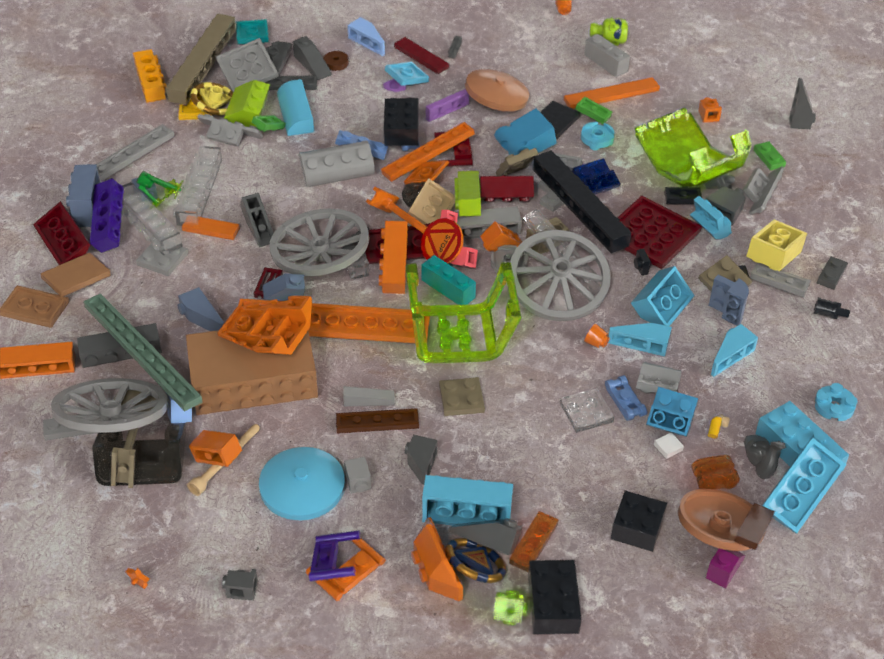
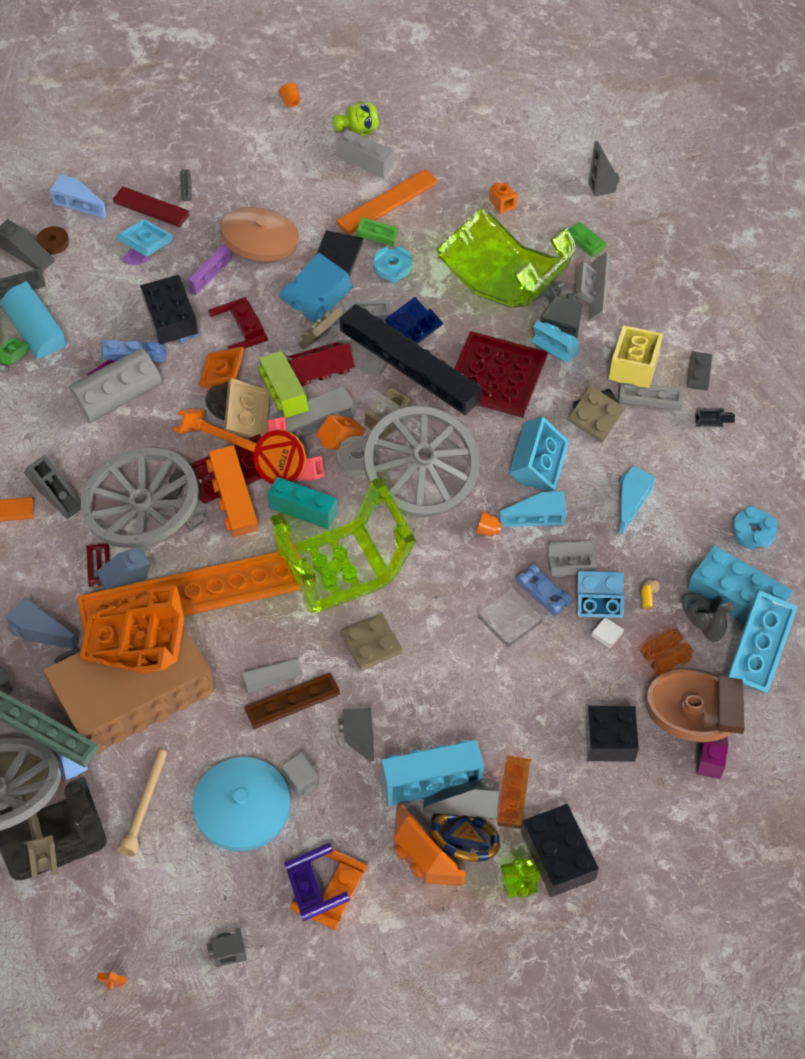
camera: 20 degrees left, 10 degrees up
(215, 448) = (132, 795): orange brick -> none
(427, 151) = (212, 339): orange tile -> none
(642, 262) = (501, 416): black plate -> none
(681, 195) = (513, 318): black plate -> none
(729, 298) = (611, 438): sand blue brick -> none

